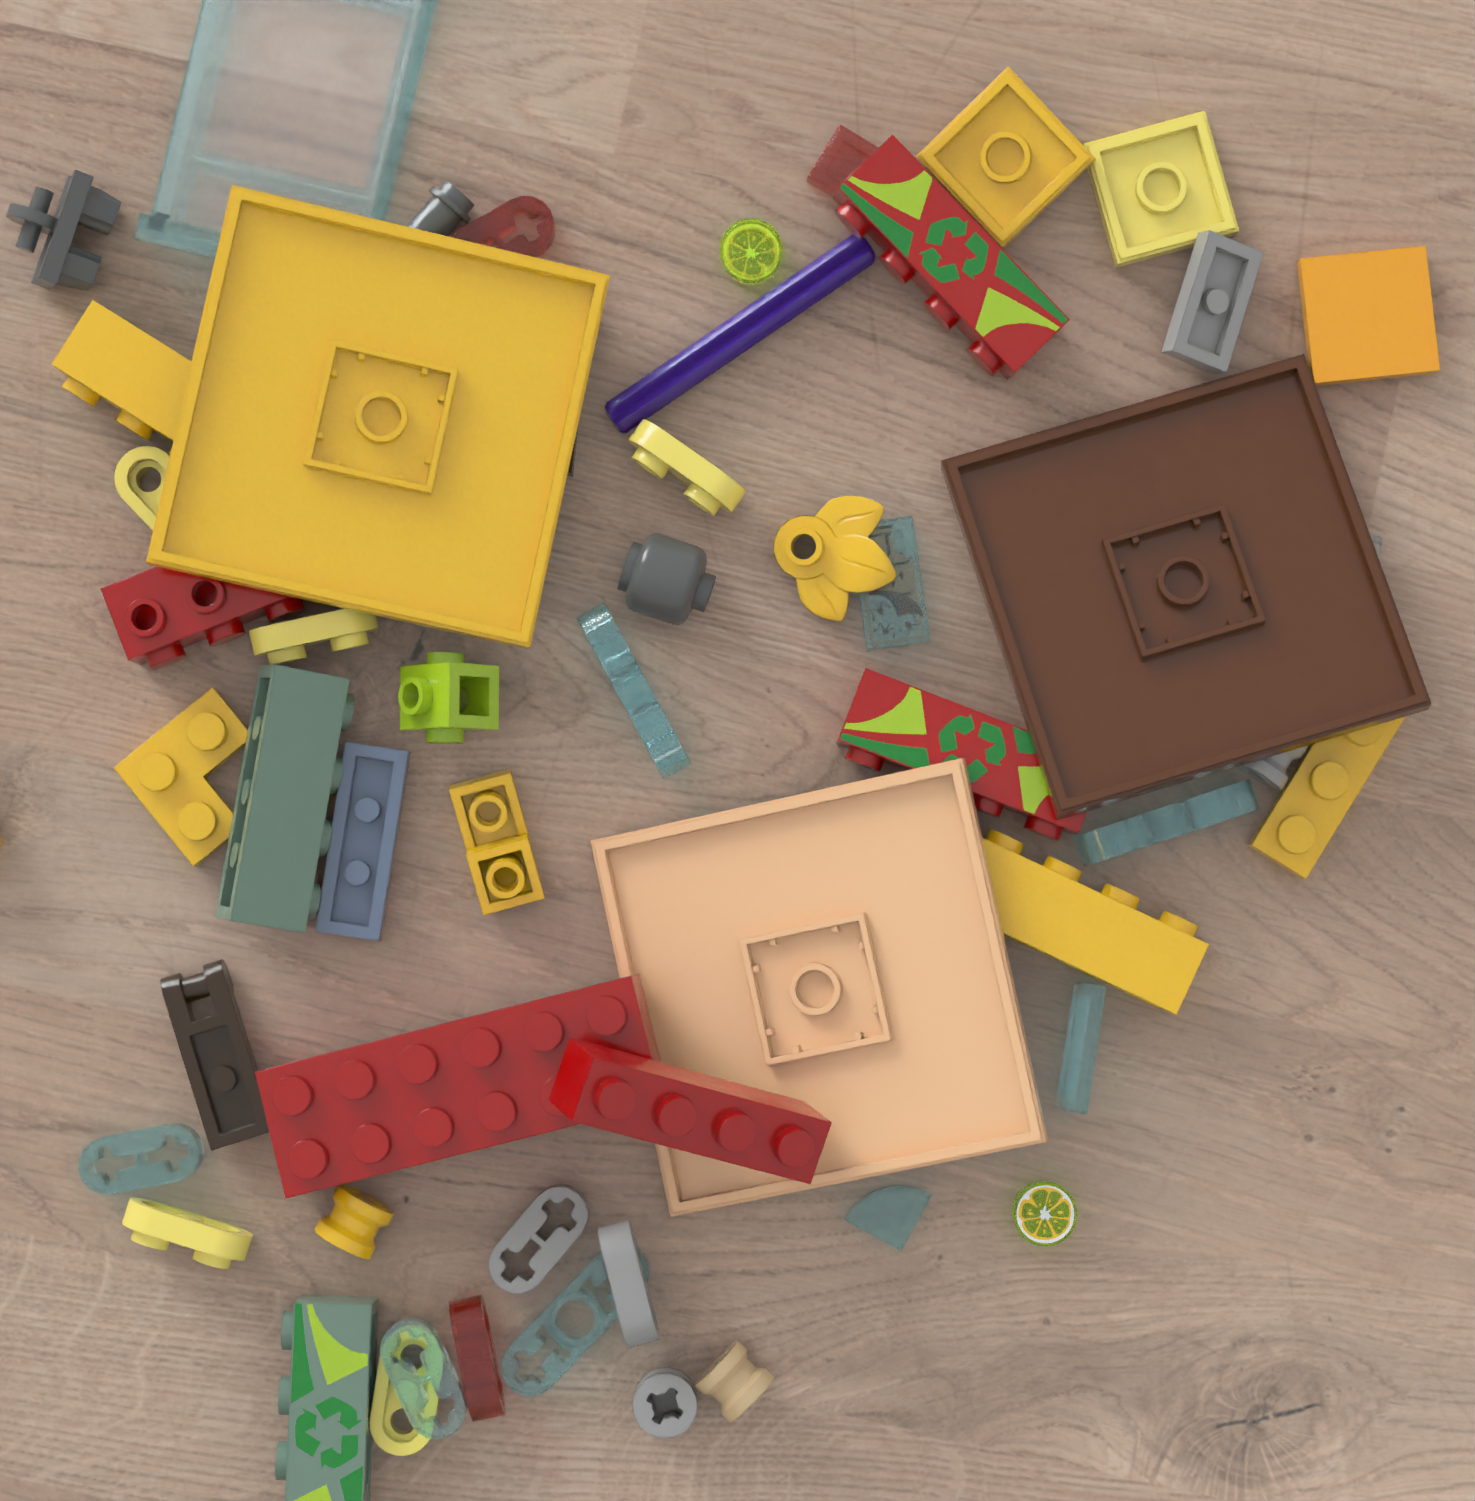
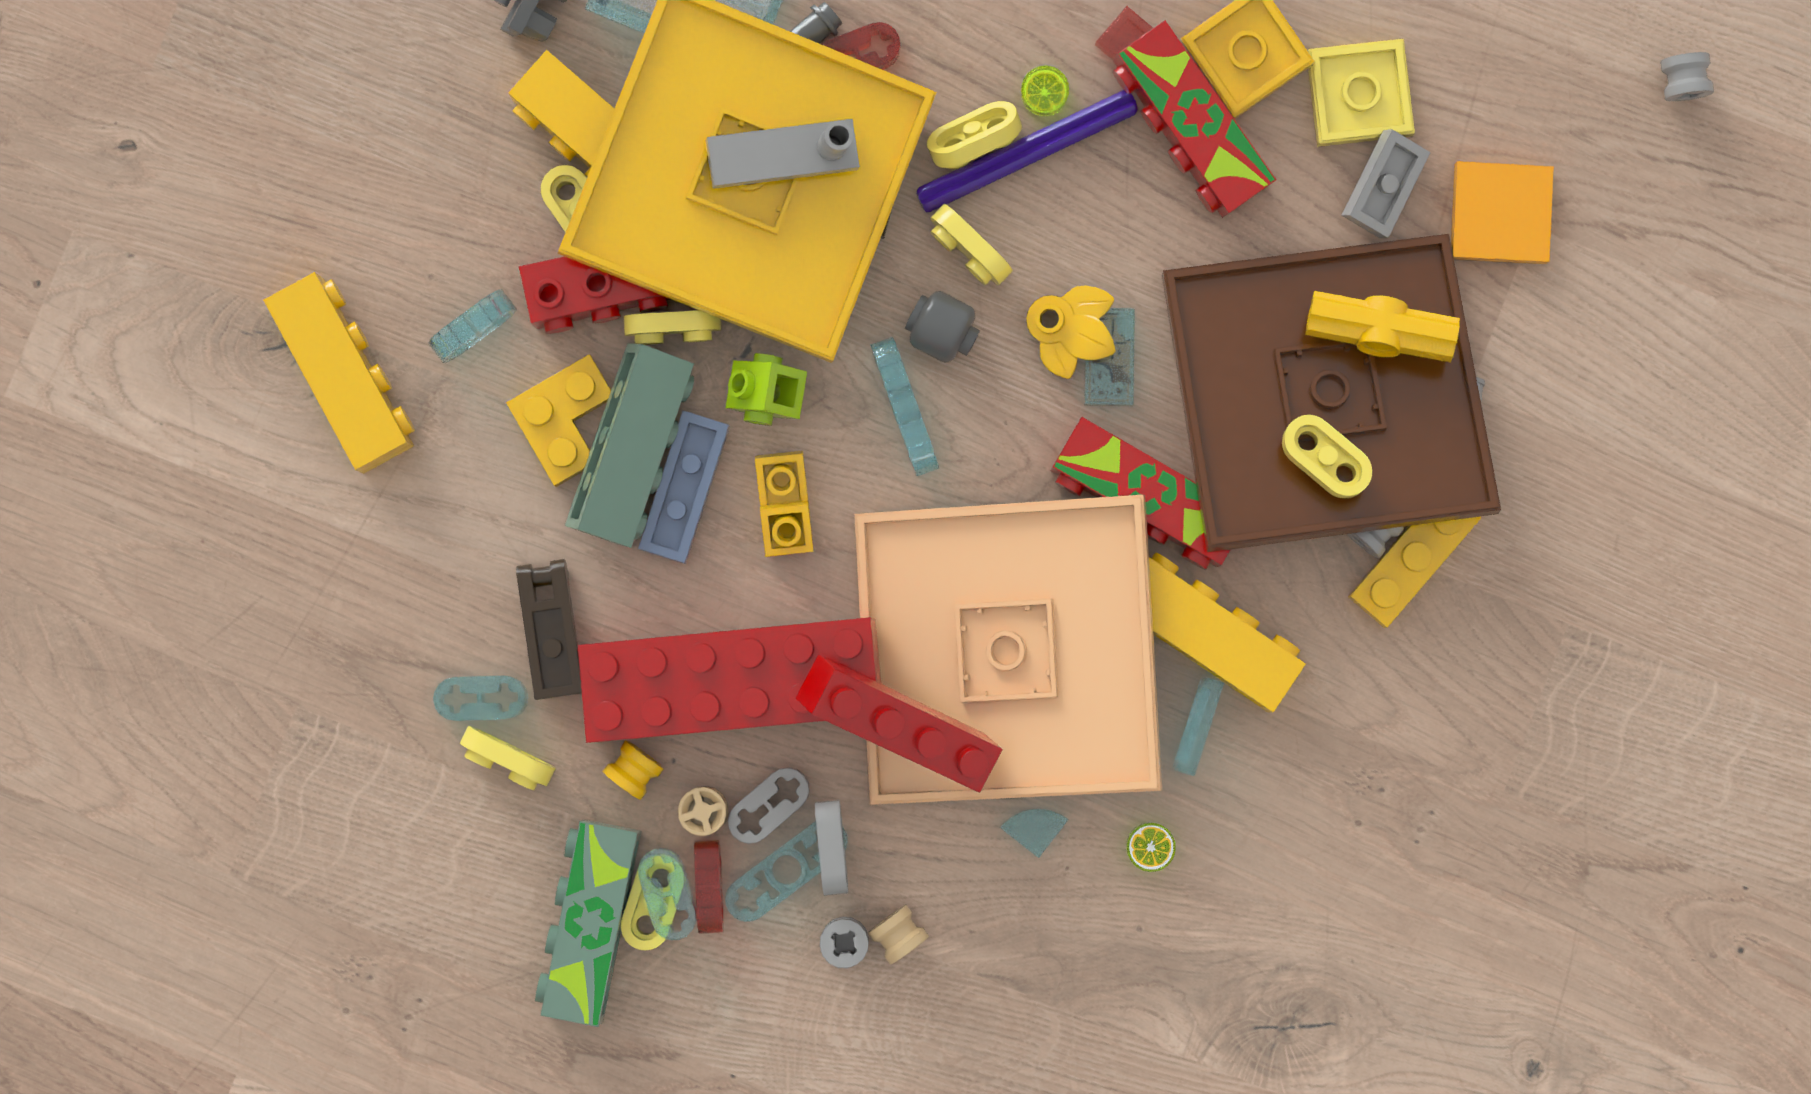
camera: 10 degrees right, 0 degrees up
(54, 675) = (472, 326): none -> clear light blue beam
(420, 387) = (782, 153): none -> light grey piece
(444, 1266) = (695, 813): none -> tan wheel
(668, 323) = (974, 135): none -> light yellow plate
(1166, 822) = (1289, 568): clear light blue beam -> none
(1195, 666) = (1329, 453): none -> light yellow plate
(1239, 489) = (1382, 326): none -> yellow piece

